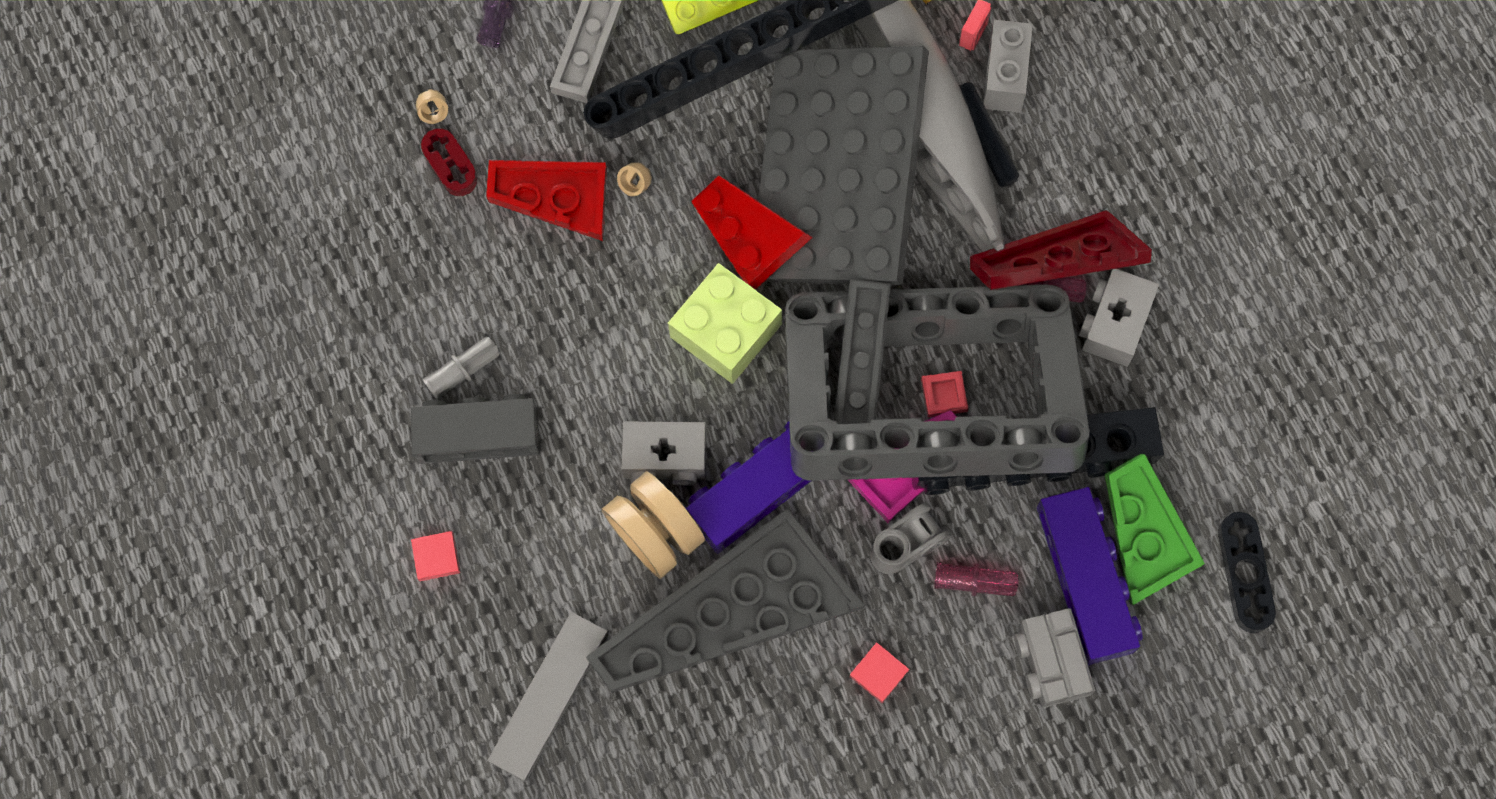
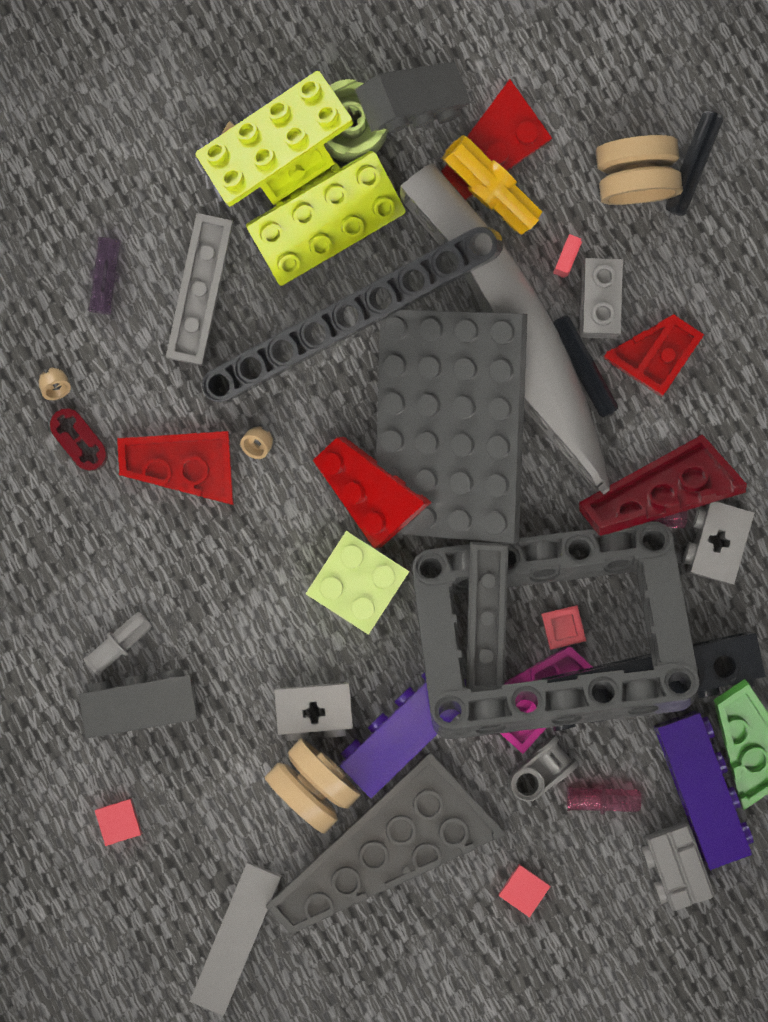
camera: 10 degrees left, 15 degrees up
(1062, 127) = (656, 353): none -> red wing

